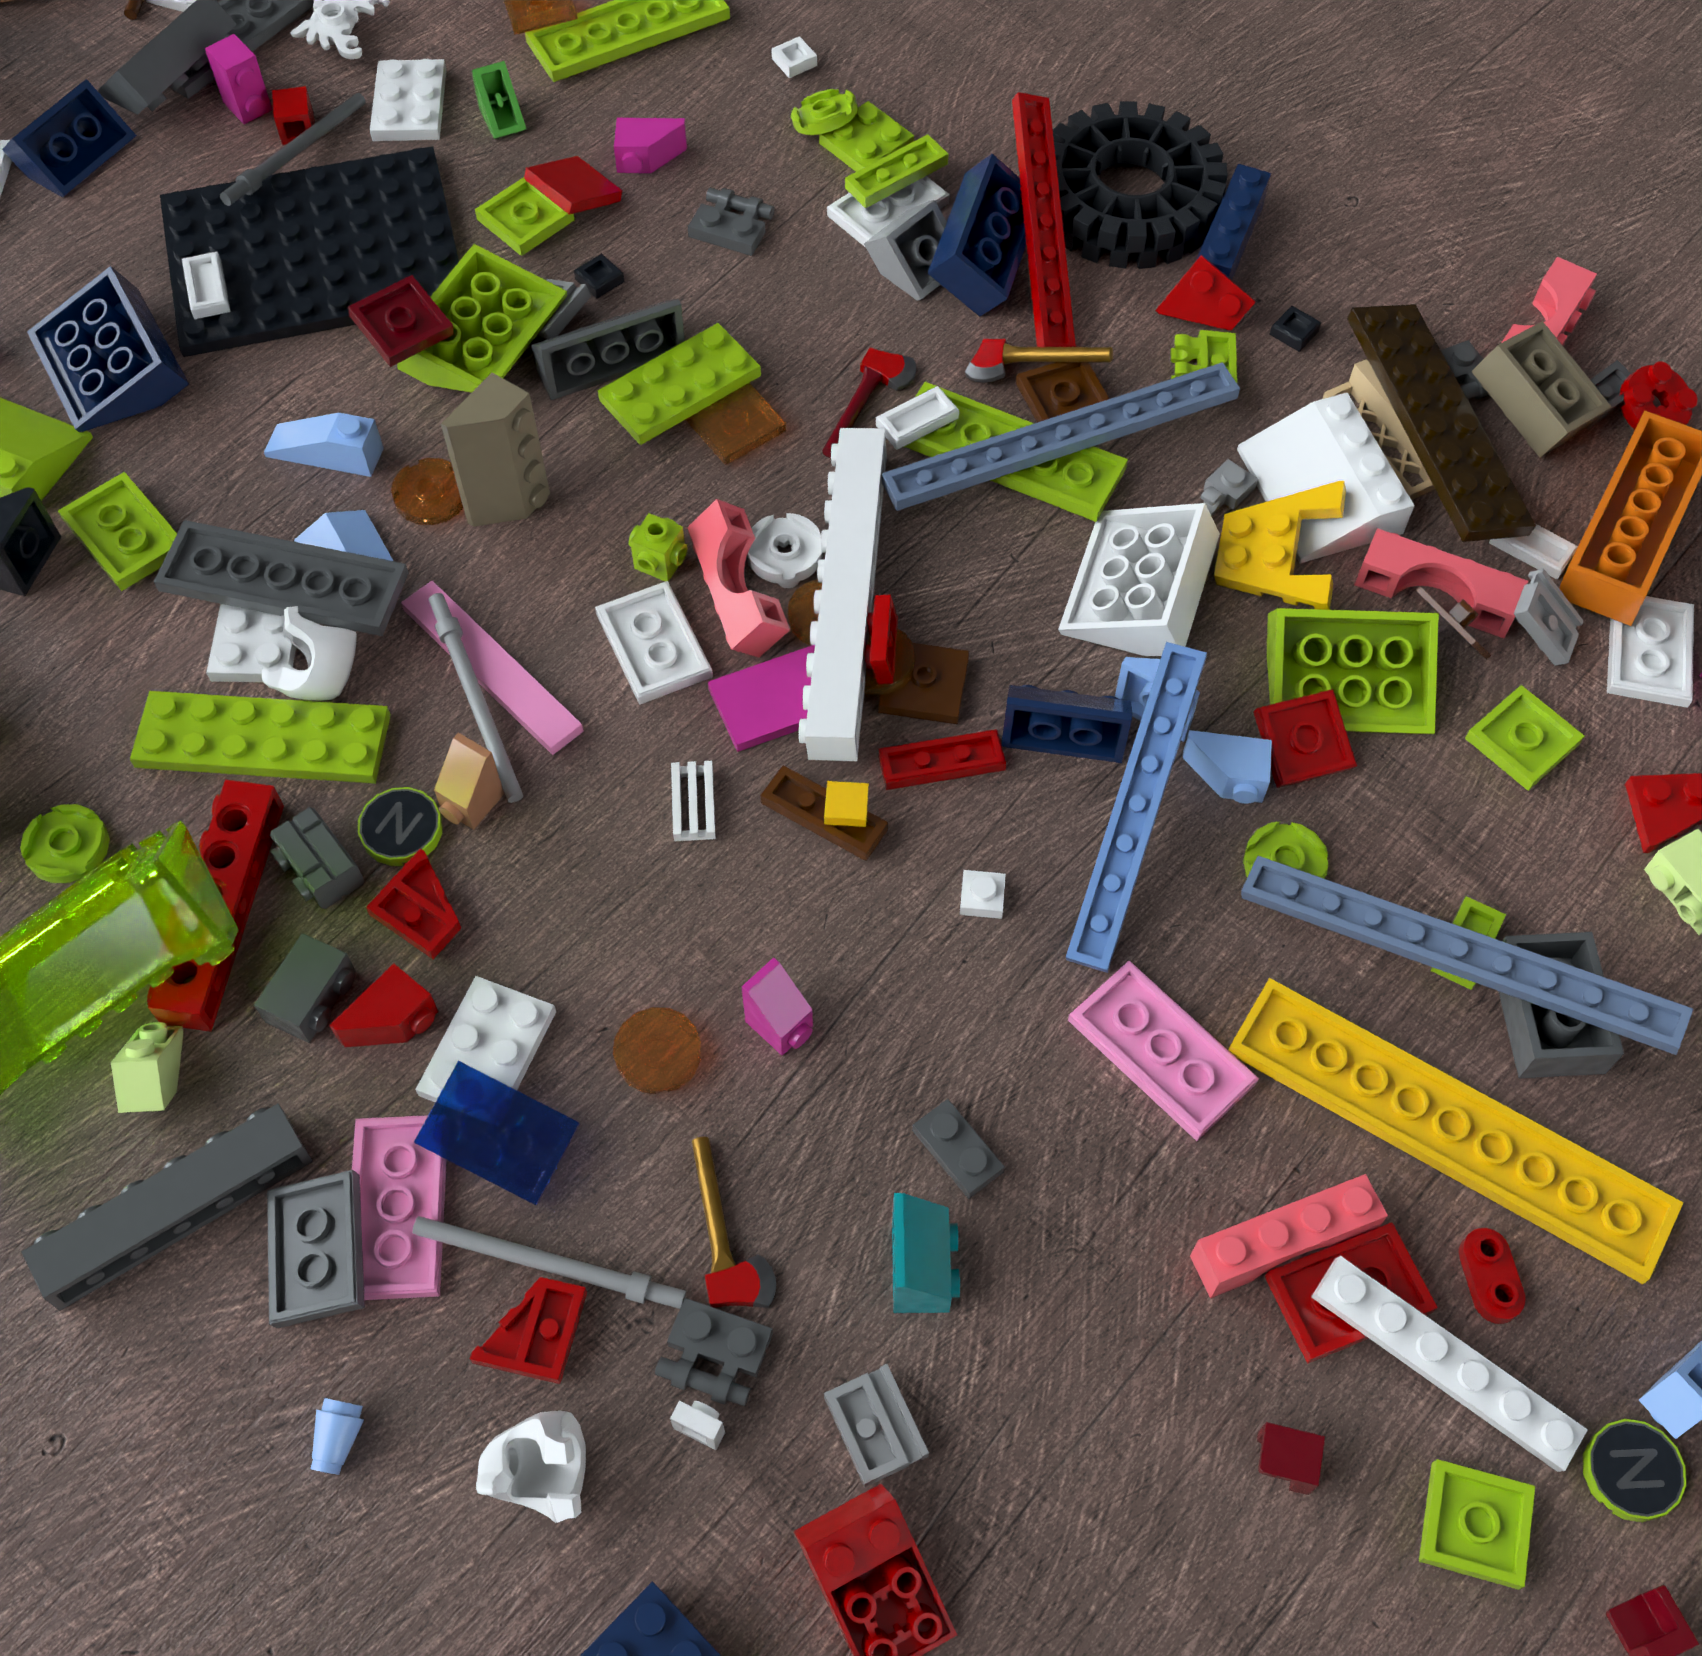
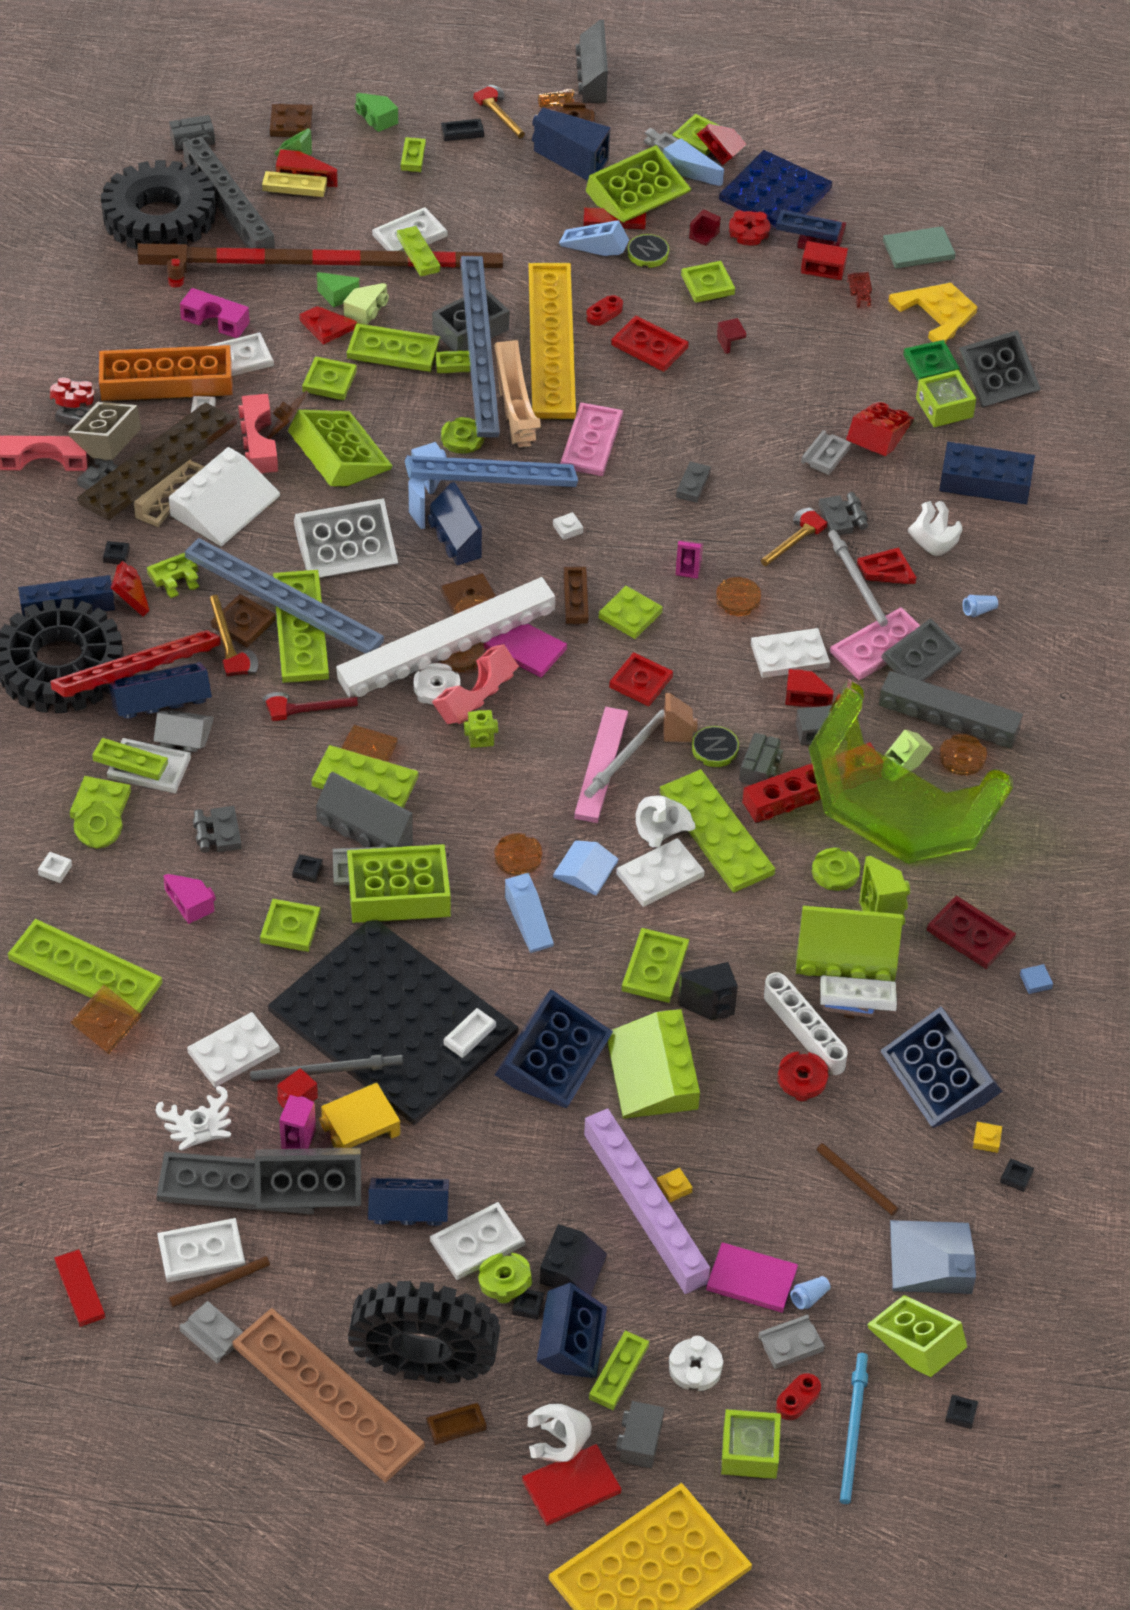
camera: 125 degrees left, 10 degrees down
(85, 1169) = (963, 754): none -> clear orange tile
(200, 146) = (359, 1117): none -> yellow panel
(278, 574) = (632, 860): dark grey plate -> none
(401, 320) = (439, 889): dark red plate -> none
(416, 907) = (749, 712): red wing -> none
(496, 453) = (498, 790): dark tan slope -> none
(497, 1133) = (824, 616): clear blue plate -> none
(498, 100) = (207, 991): bright green slope -> none
(573, 184) = (251, 911): red tile -> none
(594, 800) = (641, 679): none -> red plate
(654, 642) = (533, 710): white tile -> none
(692, 772) = (605, 646): white tile -> none
(698, 1423) = (874, 500): white plate -> none
(740, 874) = (630, 612): none -> lime plate
(846, 803) = (569, 580): yellow tile -> none
(883, 629) = (470, 601): red plate -> none
(917, 417) = (313, 663): white tile -> none
(922, 1256) = (754, 465): teal slope -> none
(941, 759) = (504, 568): red tile -> none
(1227, 486) = (255, 535): light grey plate -> none
(1259, 1244) = (665, 374): coral arch -> none
(1262, 544) = (285, 500): yellow wing -> none
(1305, 738) = (390, 447): red tile -> none
(1352, 973) = (513, 390): none -> light nougat arch
(1450, 1364) = (655, 305): white plate -> none
(1548, 617) = (259, 386): light grey plate -> none
(1556, 864) = (393, 347): none -> lime plate

